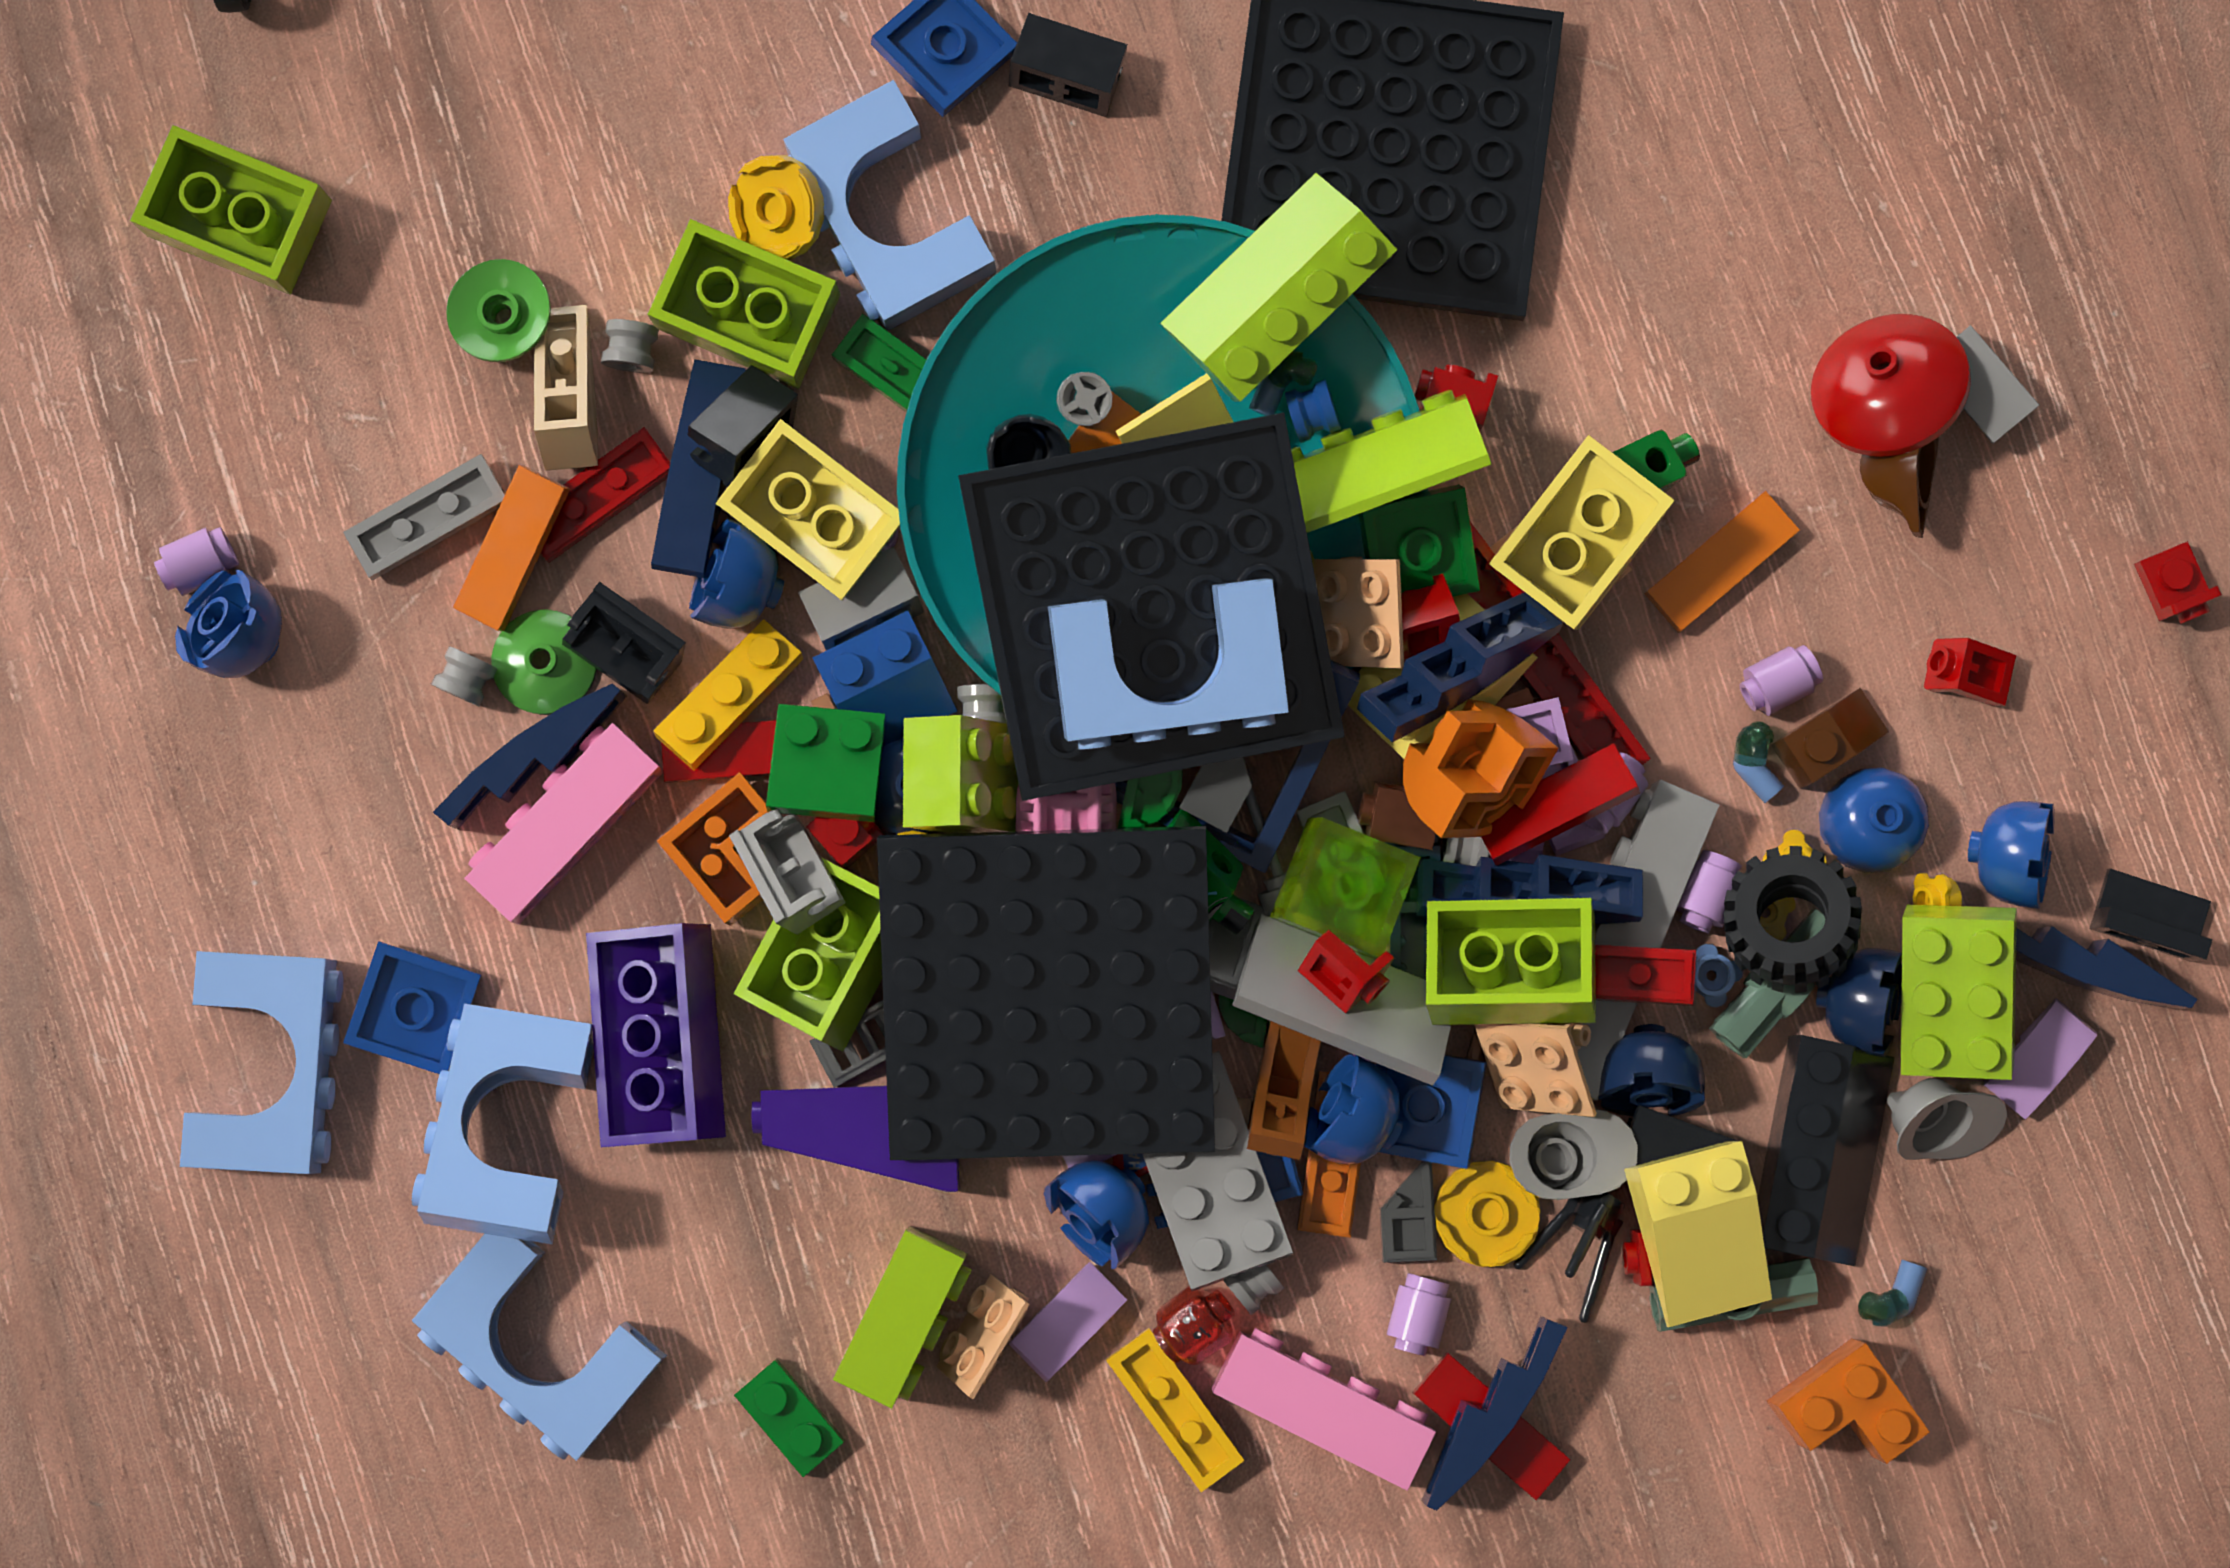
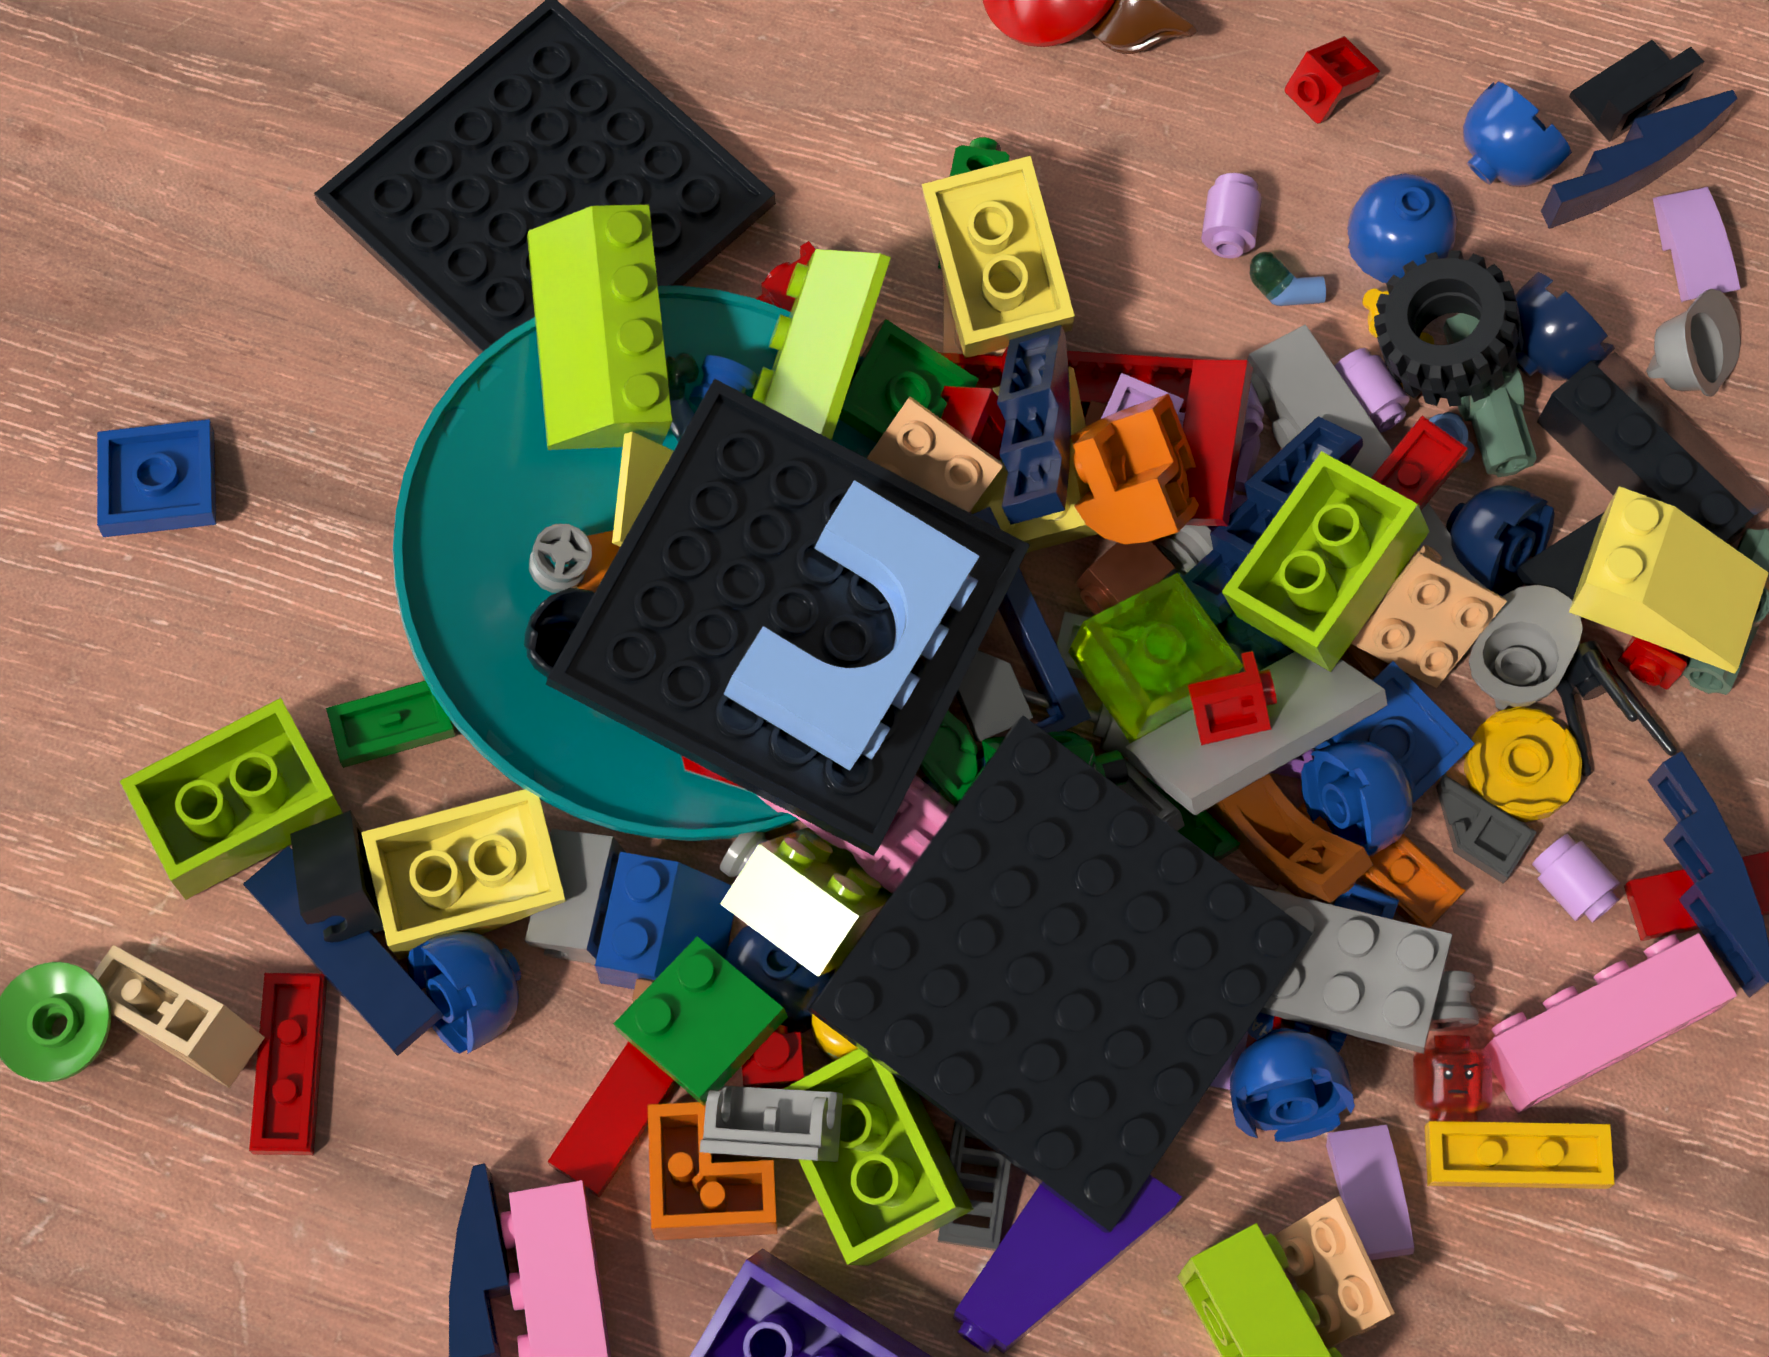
camera: 50 degrees left, 15 degrees down
(426, 517) = (179, 1232): light grey plate -> none
(464, 676) = (353, 1306): light grey wheel -> none
(511, 548) = (273, 1172): orange tile -> none
(543, 689) = (418, 1250): bright green dish -> none
(624, 643) = (442, 1132): black hinge -> none
(629, 345) = (182, 929): light grey wheel -> none
(728, 694) = (566, 1076): yellow plate -> none
(777, 206) = (169, 705): yellow tile -> none
(895, 279) = (315, 664): light blue arch -> none
(1067, 64) = (261, 393): black hinge -> none
(1722, 561) = (1097, 196): orange tile -> none
(1830, 738) = (1309, 219): reddish brown slope -> none
(1936, 891) = (1508, 216): yellow plate -> none
(1958, 991) = (1603, 250): lime brick -> none

